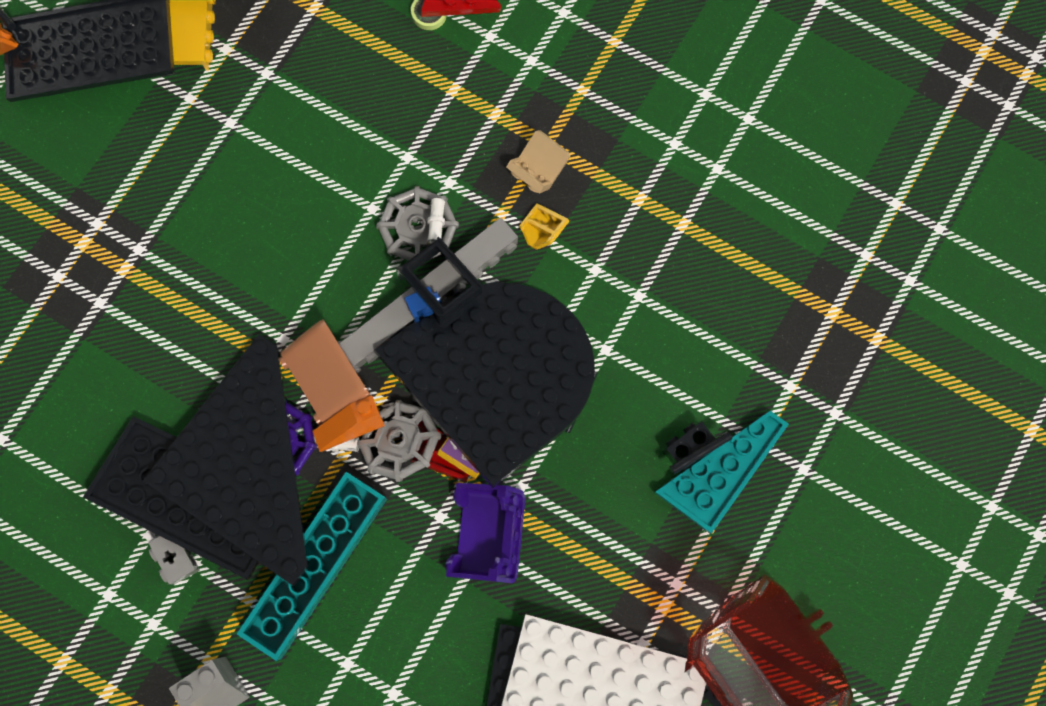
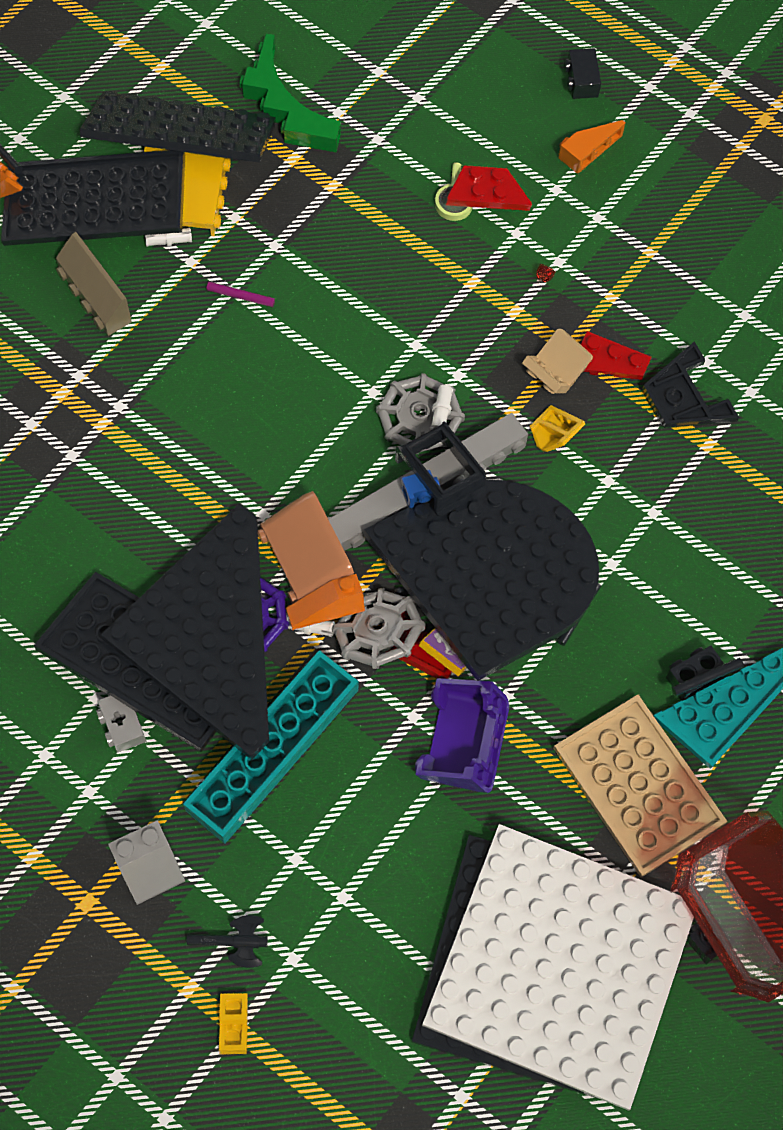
camera: 10 degrees right, 10 degrees down
(97, 135) = (93, 286): none -> dark tan slope
(180, 74) = (169, 239): none -> white pin
(241, 126) = (241, 294): none -> magenta bar
(519, 73) = (545, 273): none -> clear red hinge
(589, 150) = (614, 358): none -> red wing
(648, 558) = (639, 785): none -> tan plate
(651, 183) = (677, 398): none -> black wing

